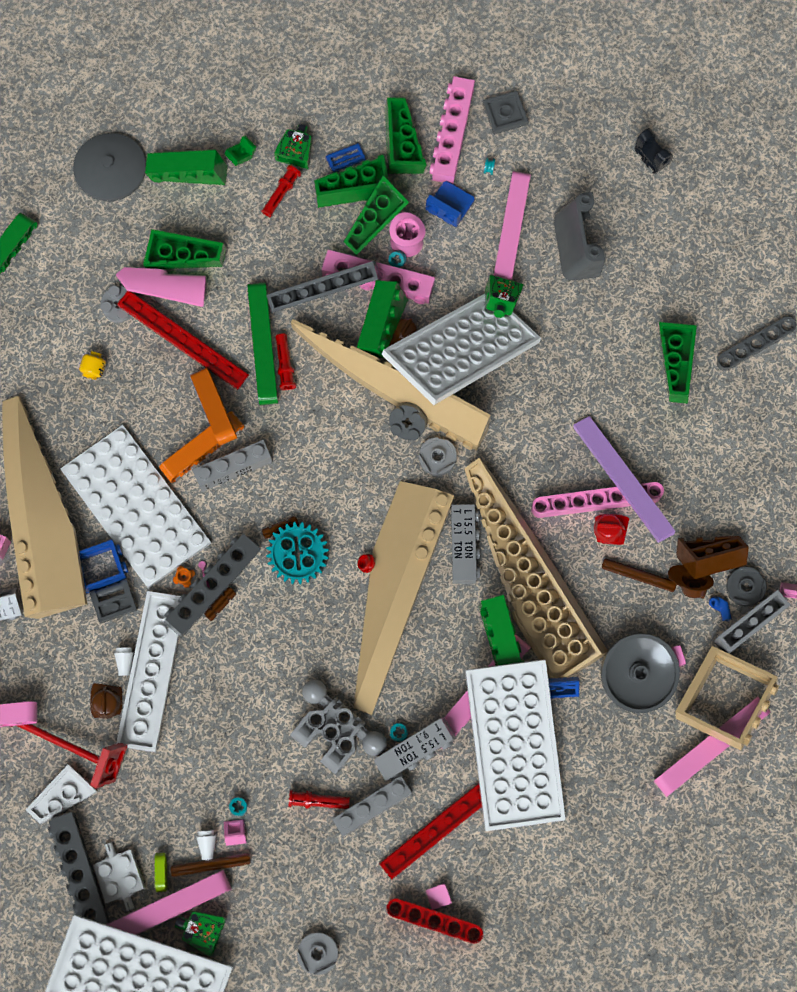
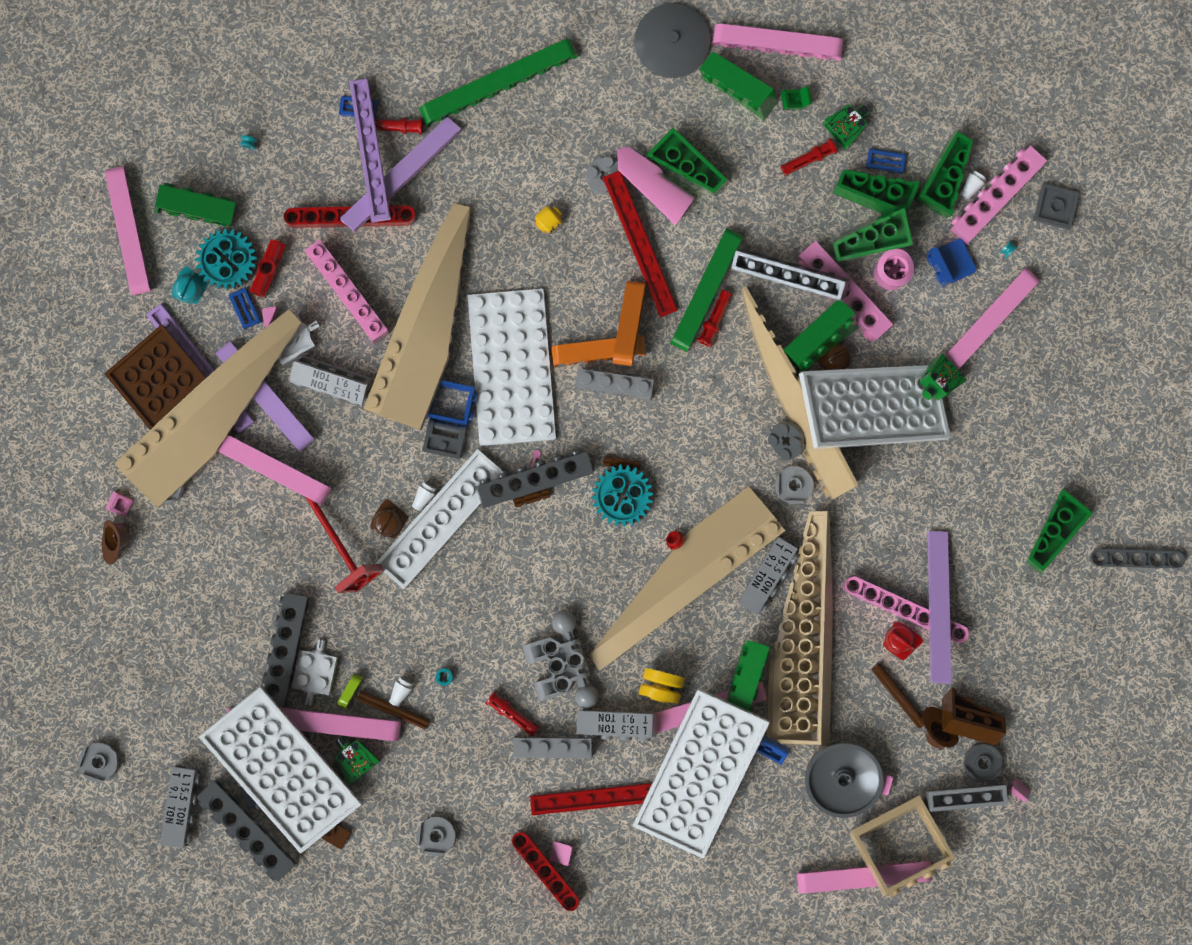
camera: 30 degrees right, 10 degrees up
(60, 795) = (306, 576): white wing -> none
(183, 571) = (520, 455): orange plate -> none
(196, 117) = (778, 41): none -> bright pink beam
(234, 832) = (429, 695): bright pink slope -> none
(393, 729) = (615, 705): teal bush -> none
(394, 254) = (865, 286): teal bush -> none
(427, 132) = (974, 182): none -> white cone
(433, 691) = (661, 686): none -> yellow wheel
(576, 257) = (1028, 382): dark grey windscreen -> none
(651, 152) = (1162, 327): black piece -> none
(721, 606) = (951, 766): blue arm -> none

